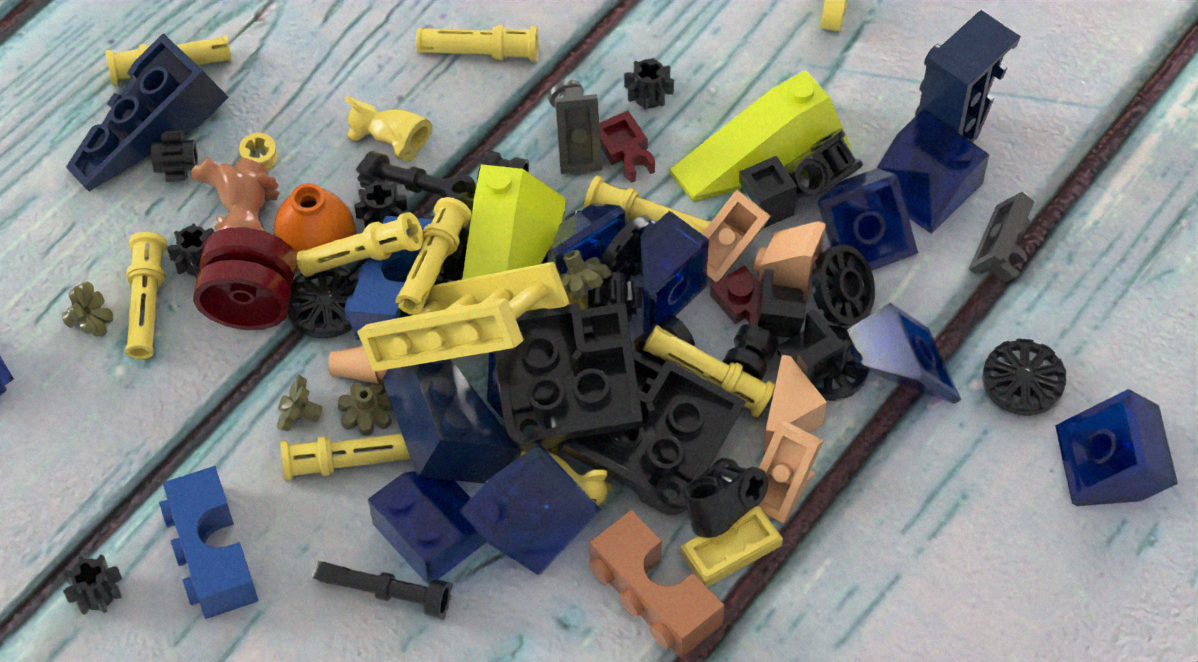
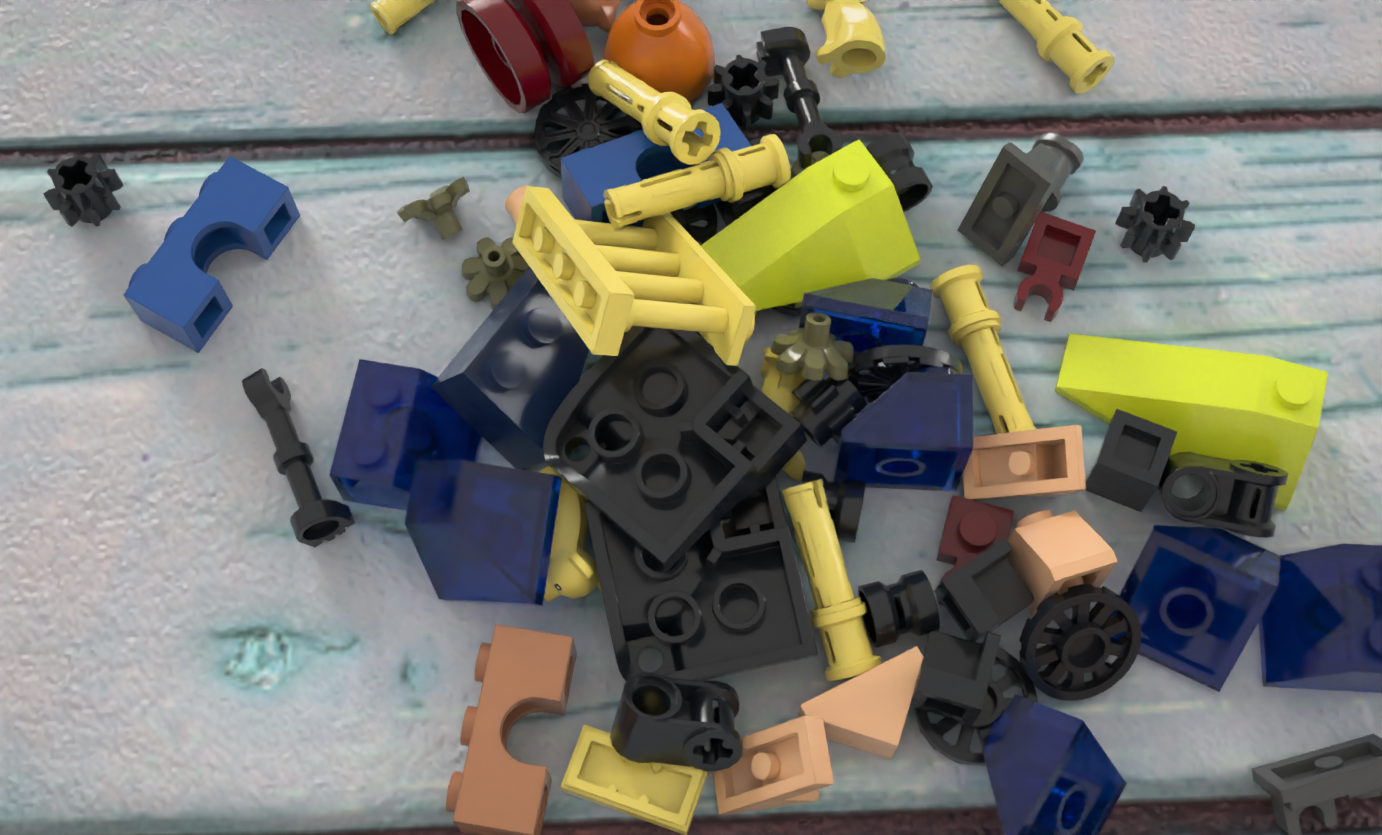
camera: 50 degrees right, 10 degrees up
(326, 463) = (398, 280): light yellow pin -> none

